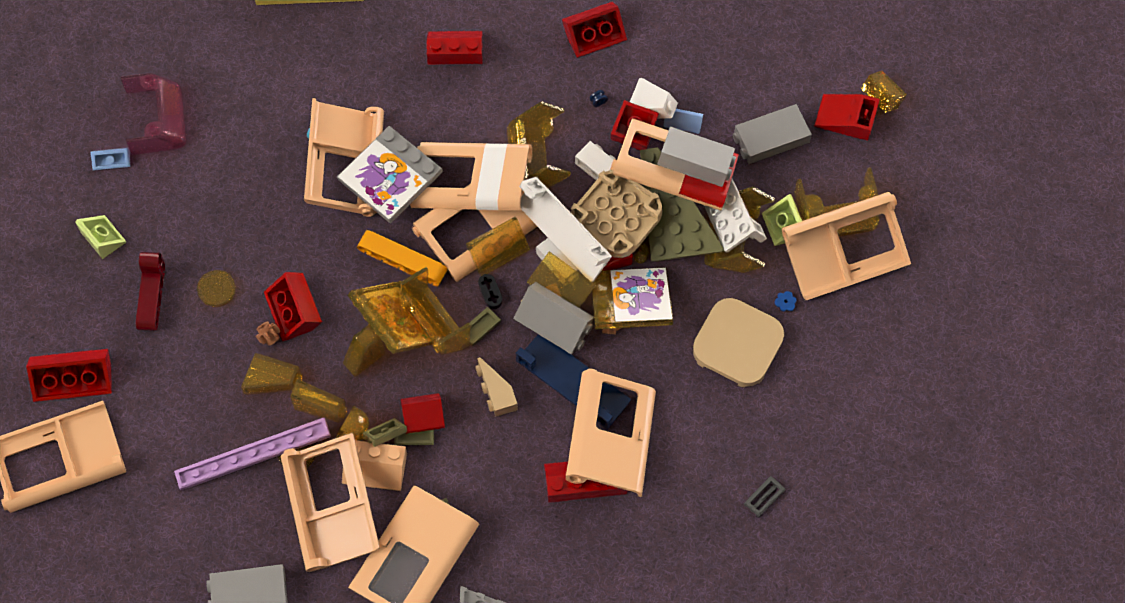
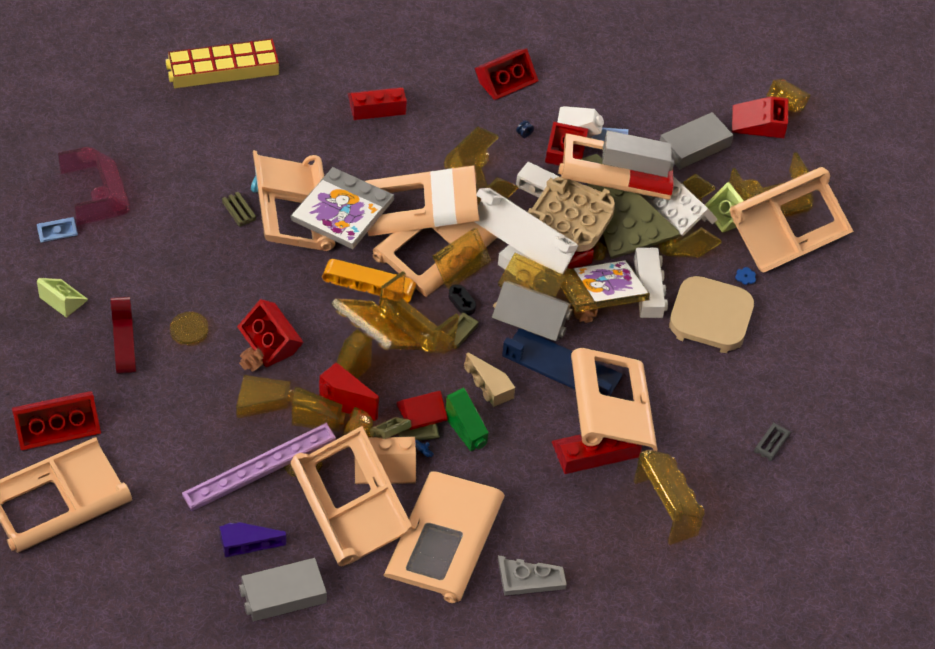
camera: 15 degrees left, 15 degrees down
(220, 530) = (247, 538): none -> dark purple slope
(287, 144) = (237, 196): none -> olive tile
(346, 385) = (347, 390): none -> red slope
(415, 456) = (423, 448): none -> blue plant
(461, 433) = (466, 420): none -> green slope
(642, 548) = (673, 492): none -> clear yellow windscreen
(683, 297) = (648, 269): none -> white brick

